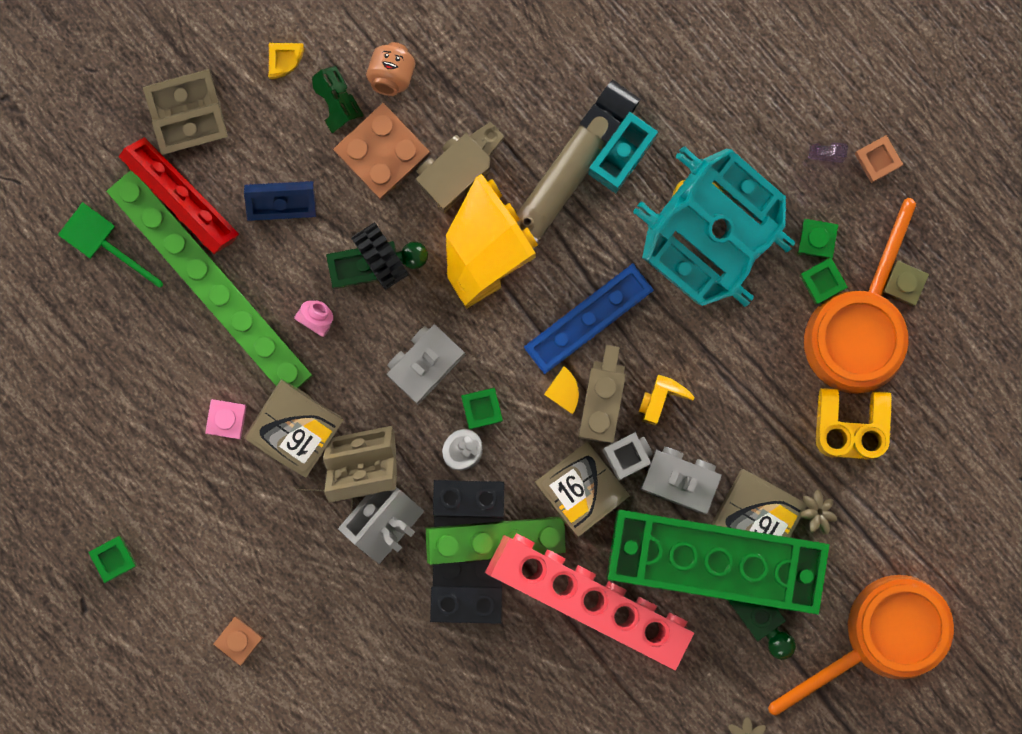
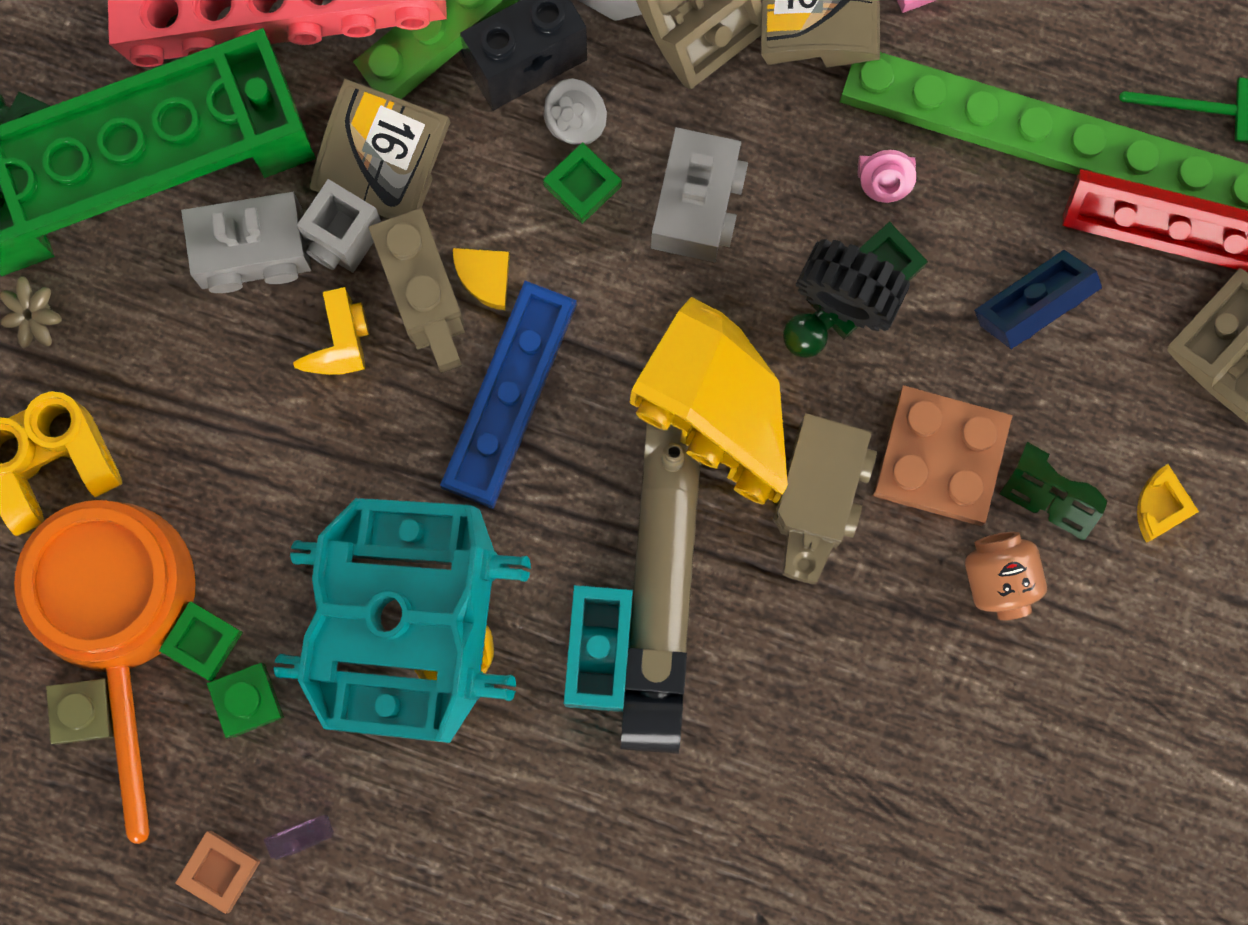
camera: 145 degrees right, 5 degrees down
(759, 507) = (115, 263): slope -> none

